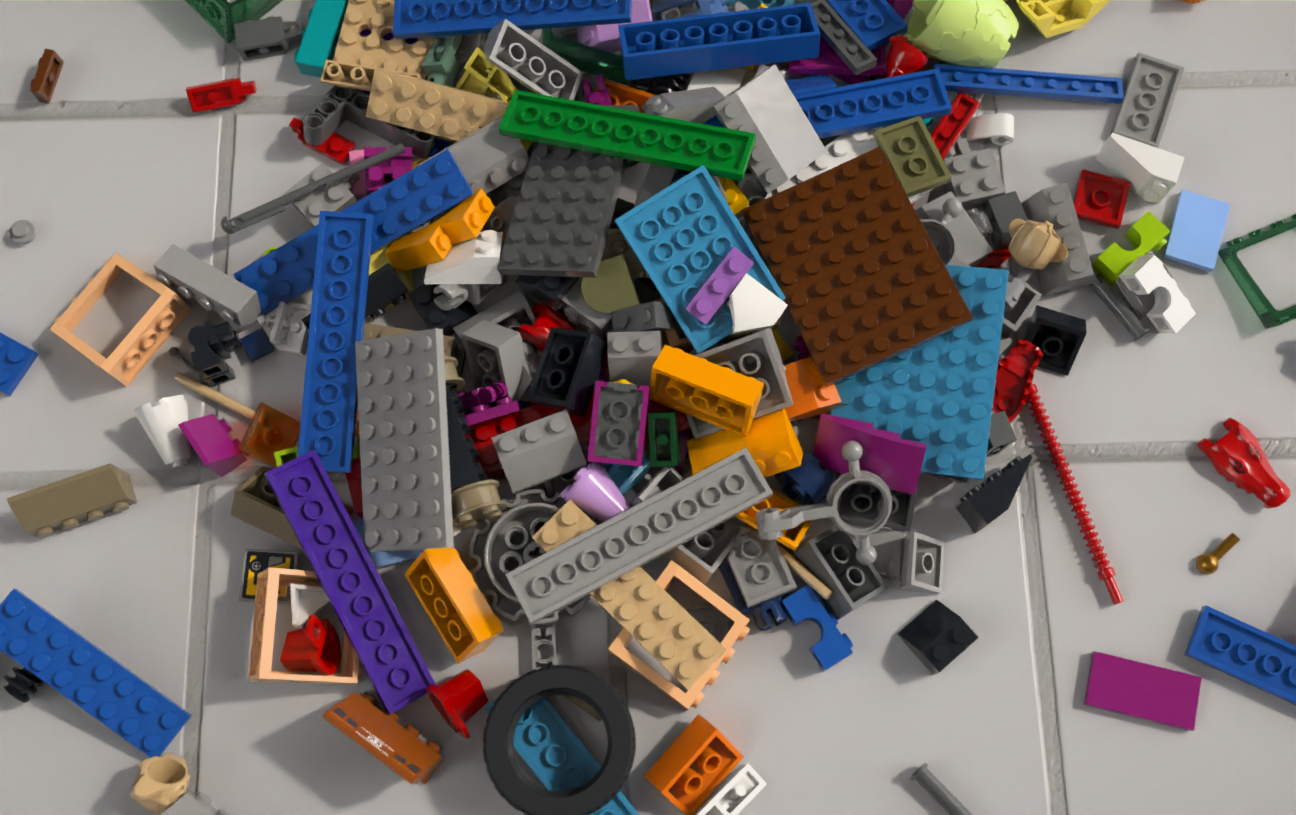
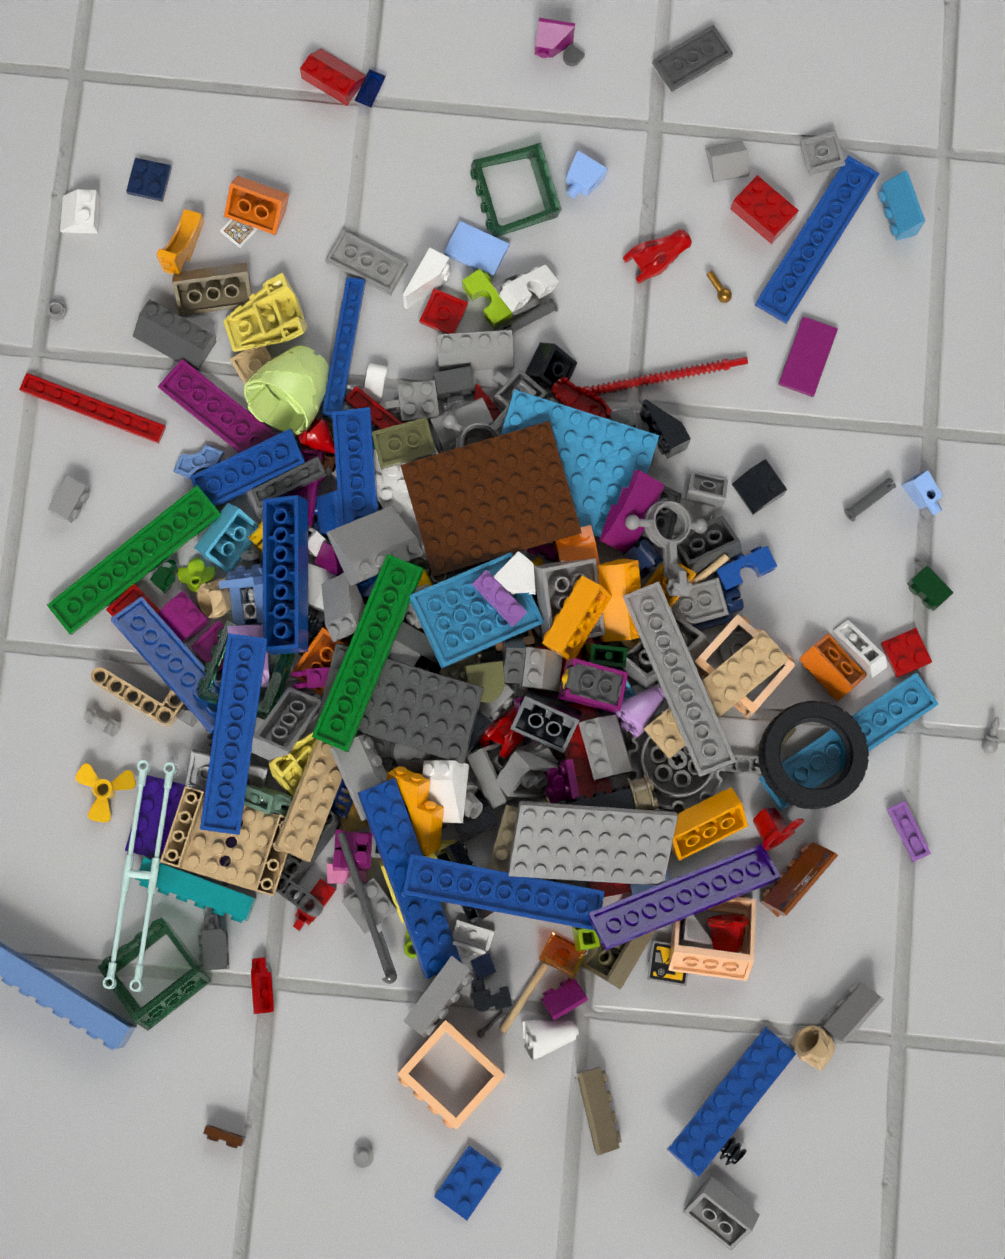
camera: 90 degrees left, 5 degrees up
(1035, 244) = (482, 367): tan piece -> none

